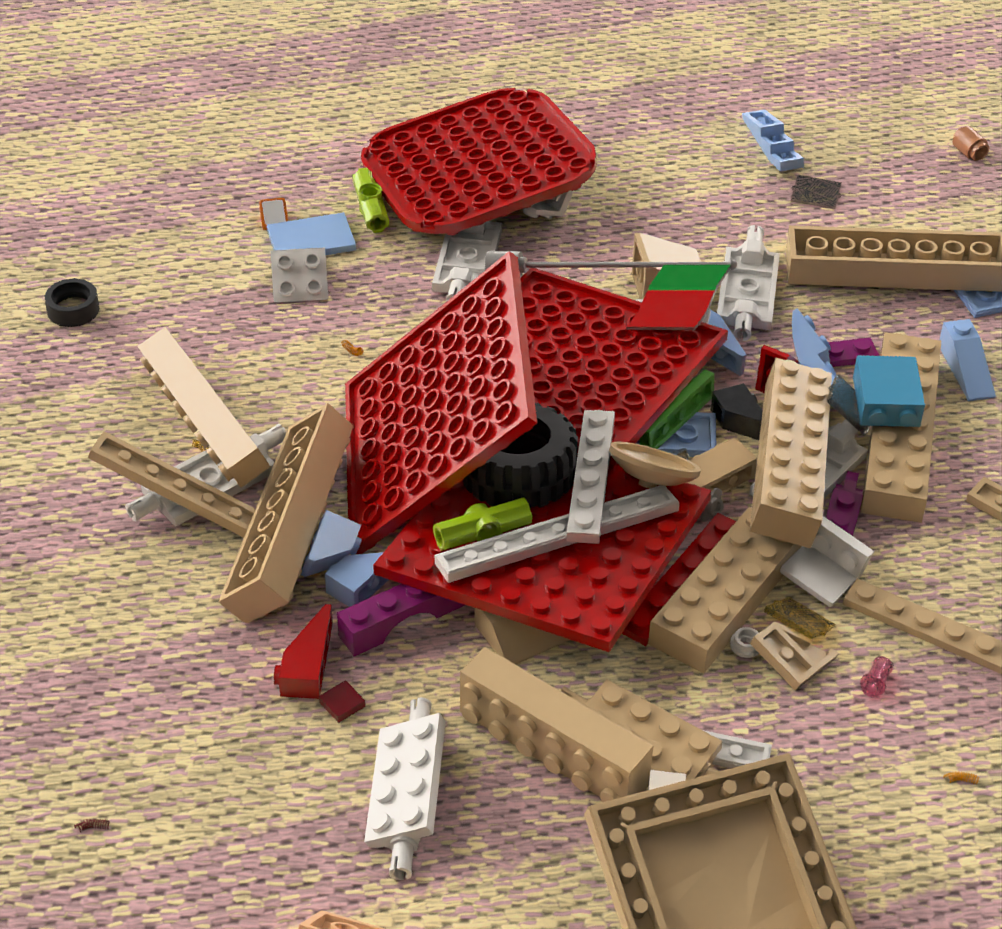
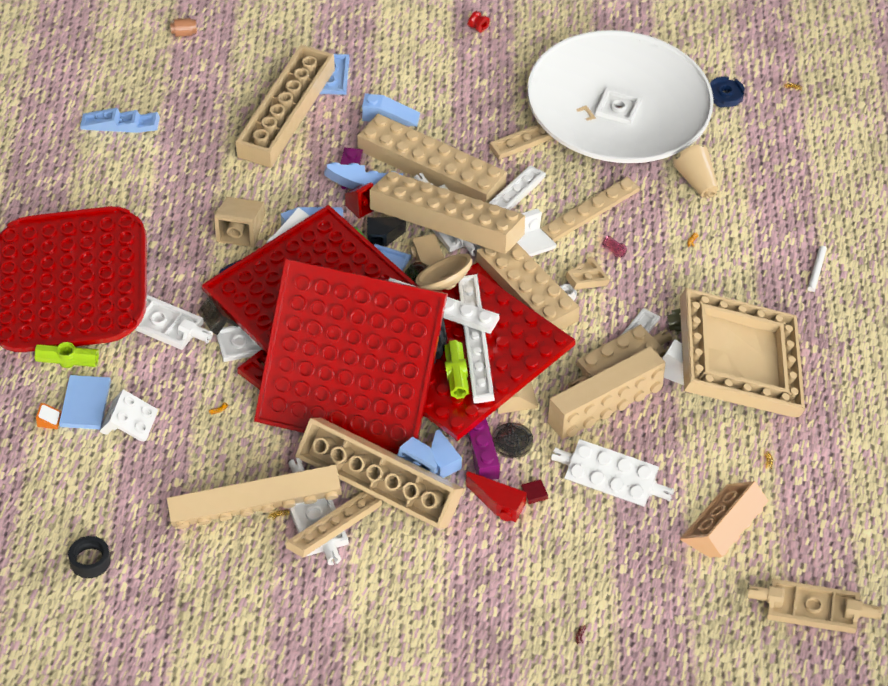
camera: 70 degrees left, 5 degrees up
(428, 651) = (512, 440): none -> clear smoke tile
(675, 297) = (287, 213): flag -> none
(750, 288) = (266, 186): white plate -> none
(799, 618) = (561, 263): clear yellow piece -> none
(816, 192) = (184, 121): clear smoke piece -> none
(843, 399) = (418, 173): clear smoke piece -> none
(888, 391) = (422, 150): dark azure brick -> none
(914, 532) = (518, 188): none -> white tile

